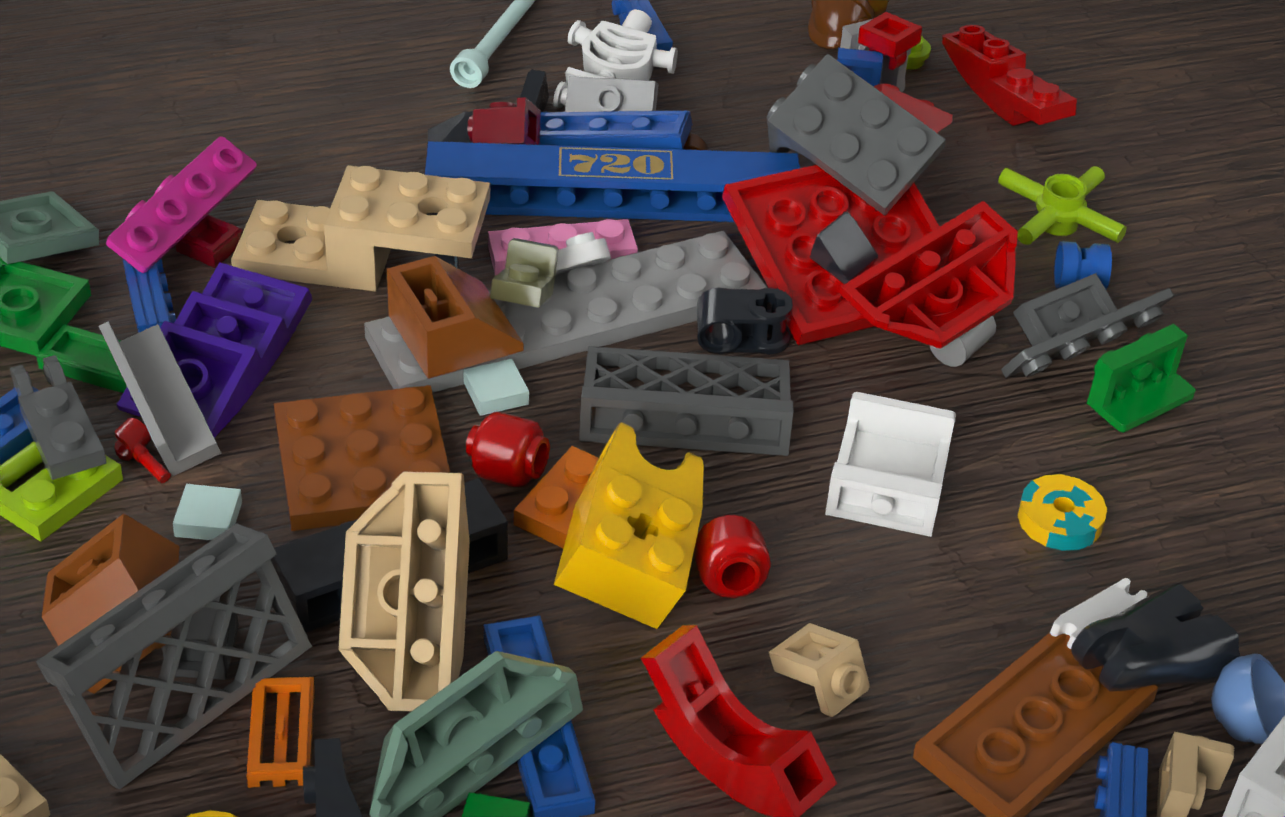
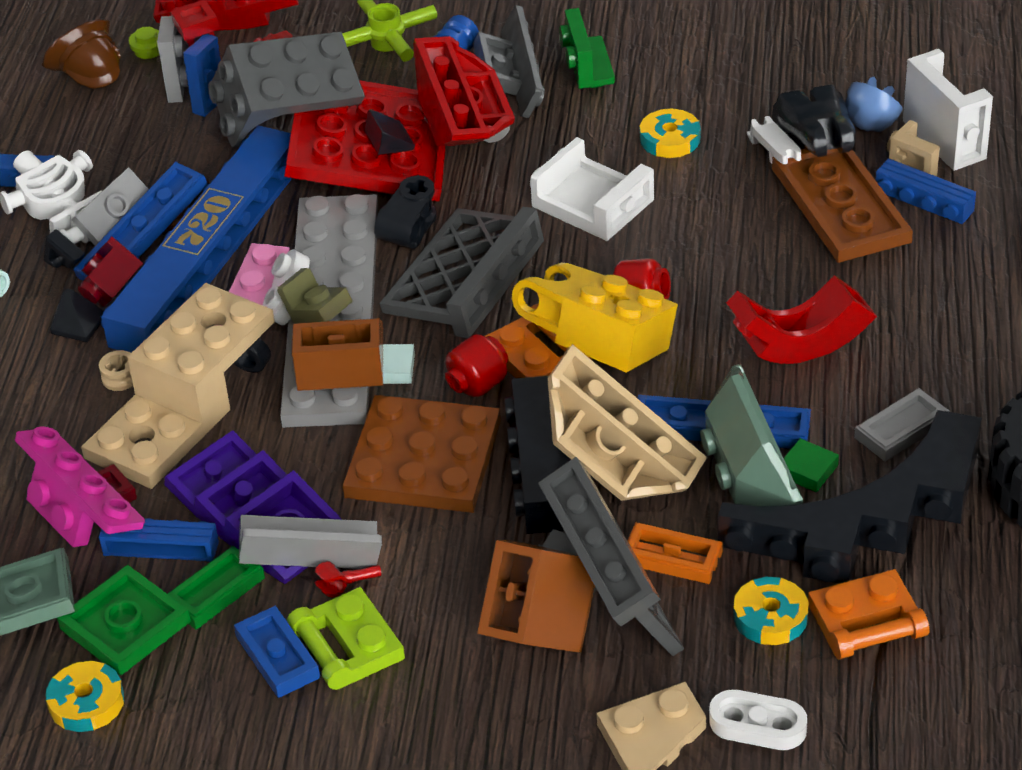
camera: 60 degrees left, 0 degrees up
(58, 422) = (300, 604): dark grey hinge -> none
(206, 511) = (436, 550): light aqua tile -> none
(824, 661) = (750, 272): tan bracket -> none

